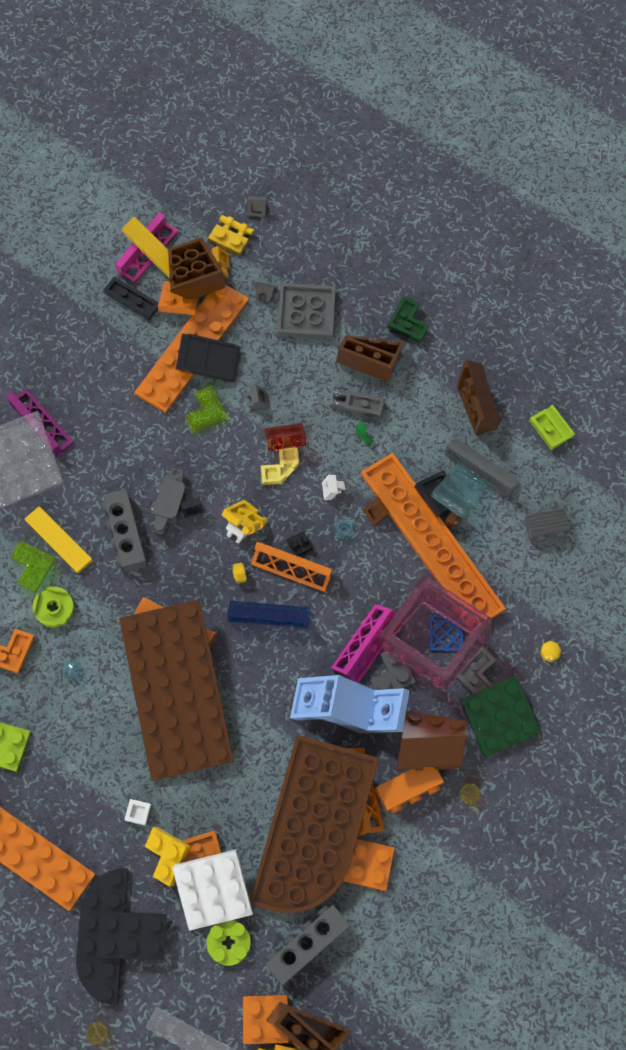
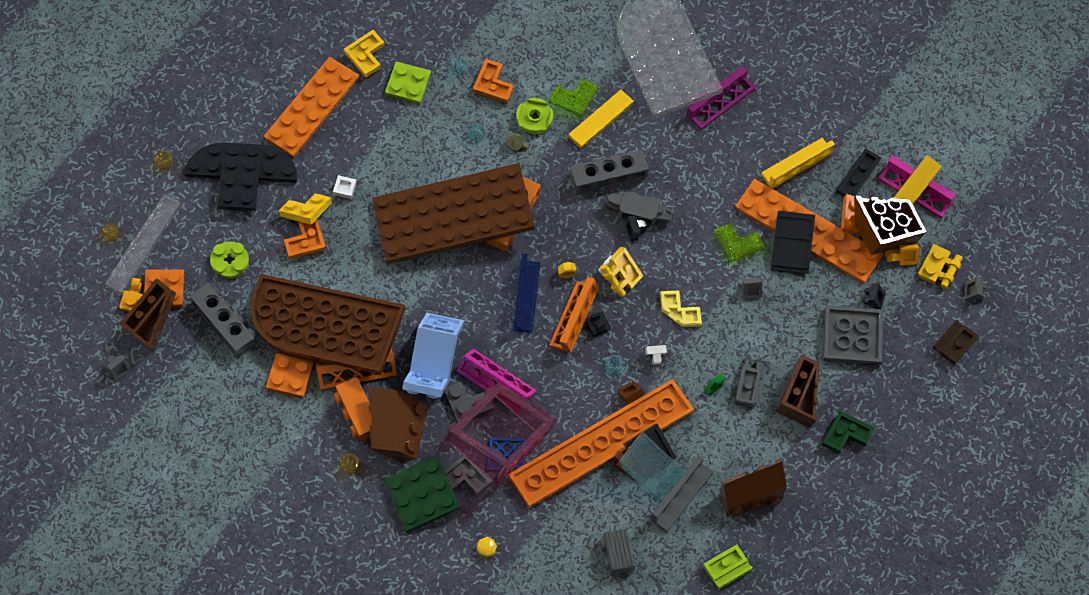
camera: 90 degrees right, 5 degrees down
(85, 626) = (515, 142): none -> olive piece
(116, 352) = (798, 162): none -> yellow fence
(212, 889) = (273, 242): white plate -> none
(285, 437) = (709, 311): clear red bracket -> none
(311, 225) = (955, 342): none -> dark brown plate

